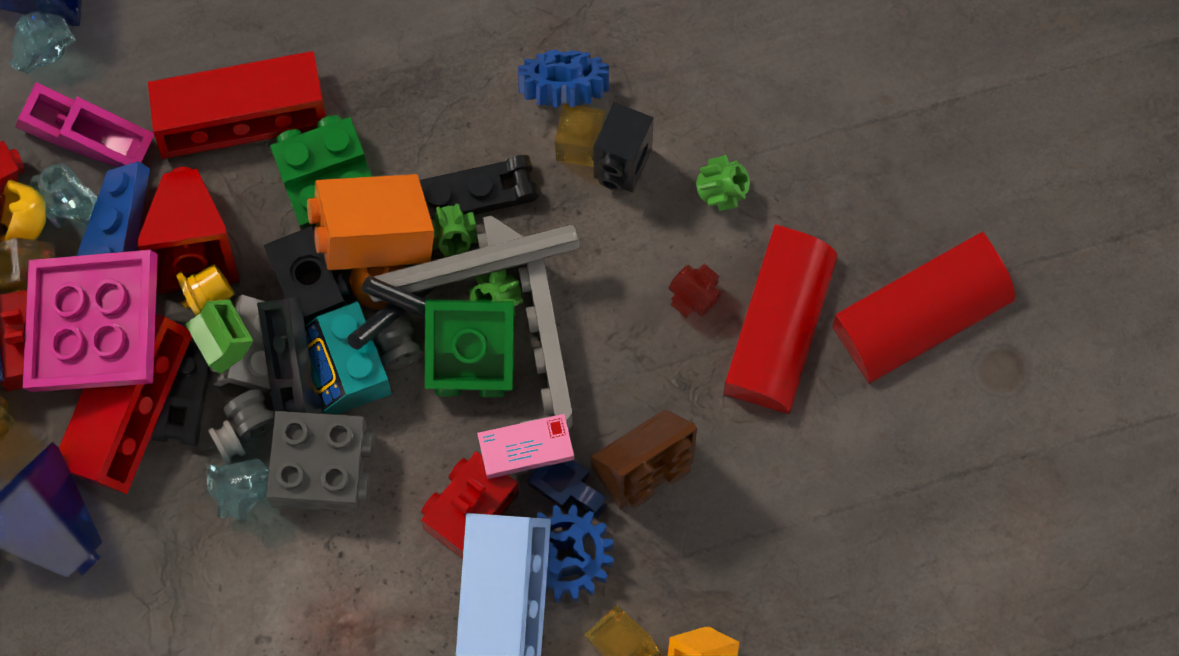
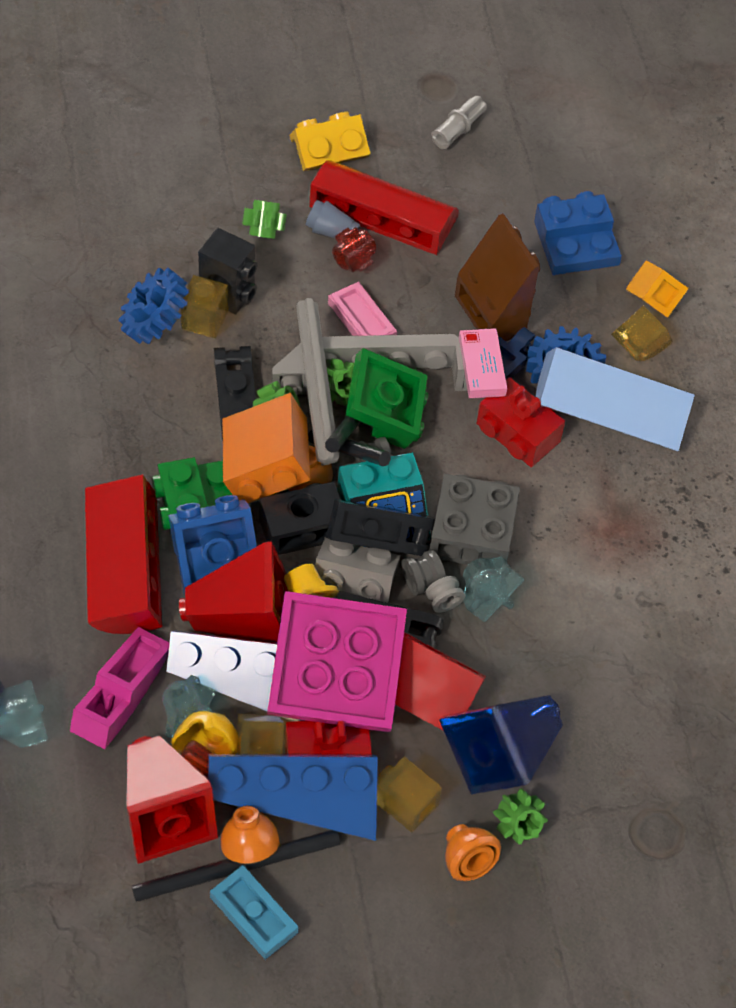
camera: 90 degrees left, 15 degrees down
(220, 334) = (357, 571): bright green piece -> none
(251, 188) = (210, 536): none -> blue plate
(608, 315) = (360, 312): none -> bright pink tile
(739, 261) = (329, 220): none -> sand blue cone
(777, 558) = (577, 233): none -> blue plate
(869, 244) = (334, 140): none -> yellow bracket
(925, 307) = (385, 117): red brick -> none
(937, 398) = (458, 122): none -> light grey axle

